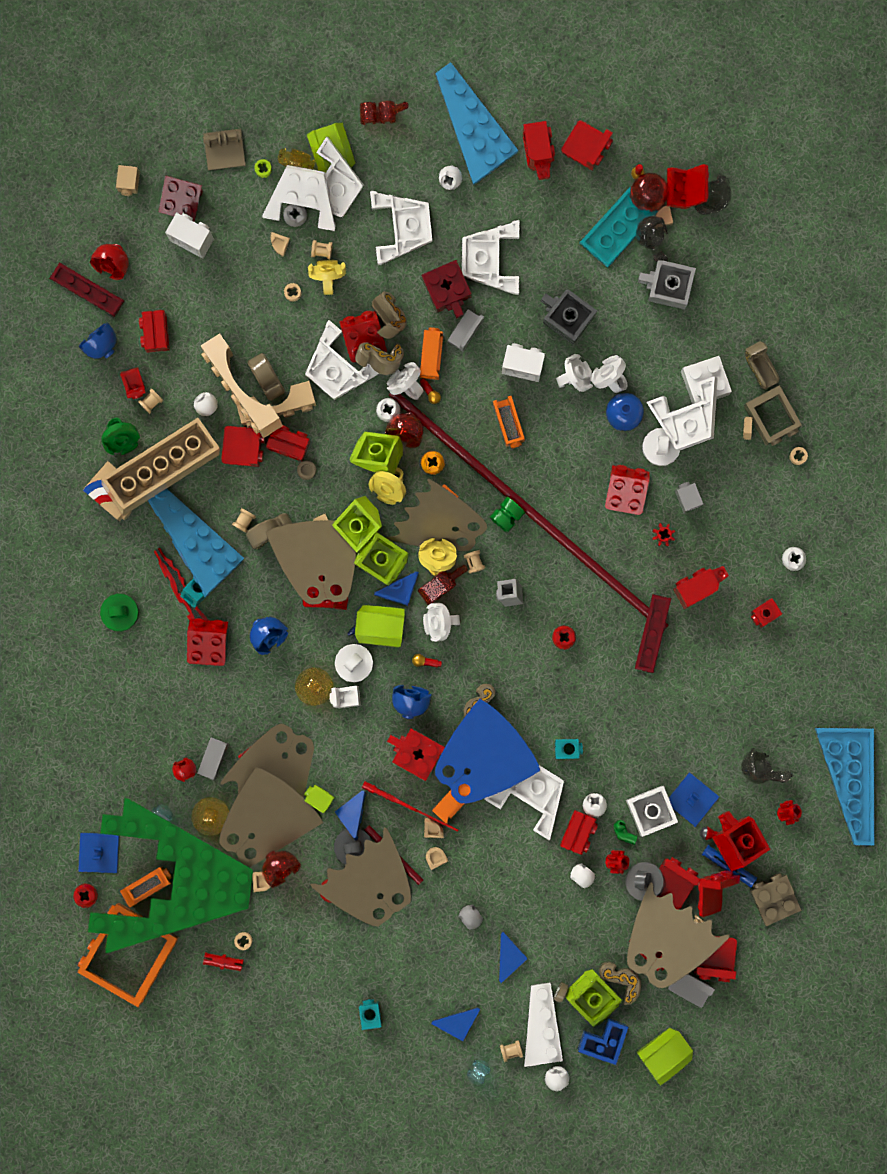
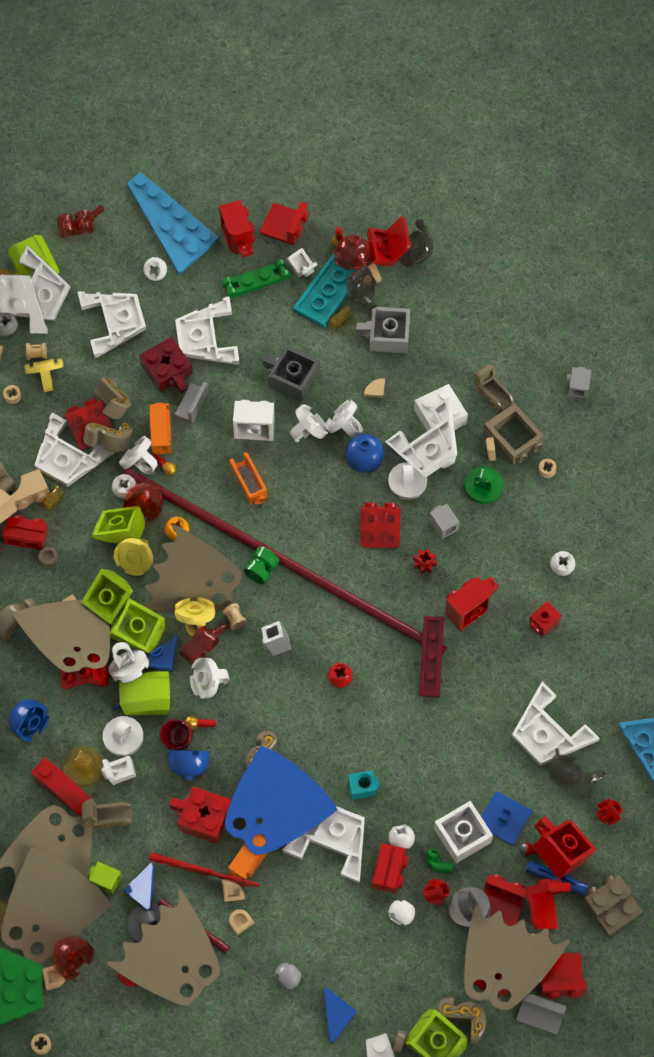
camera: 15 degrees left, 20 degrees down
(291, 705) = (59, 785): none -> red slope
(319, 411) = (50, 502): none -> clear yellow pin
(329, 739) = (106, 814): none -> dark tan animal
(367, 596) = (127, 665): none -> white tile
(398, 668) = (176, 734): none -> dark red hair
(548, 203) = (256, 279): none -> green plate
(596, 194) = (301, 263): none -> white bracket
(625, 260) = (337, 320): none -> clear yellow pin
(647, 343) = (375, 389): none -> tan tile
(734, 463) = (484, 485): none -> green tile
(742, 728) = (541, 734): none -> white wing
(847, 370) = (579, 382): none -> light grey brick

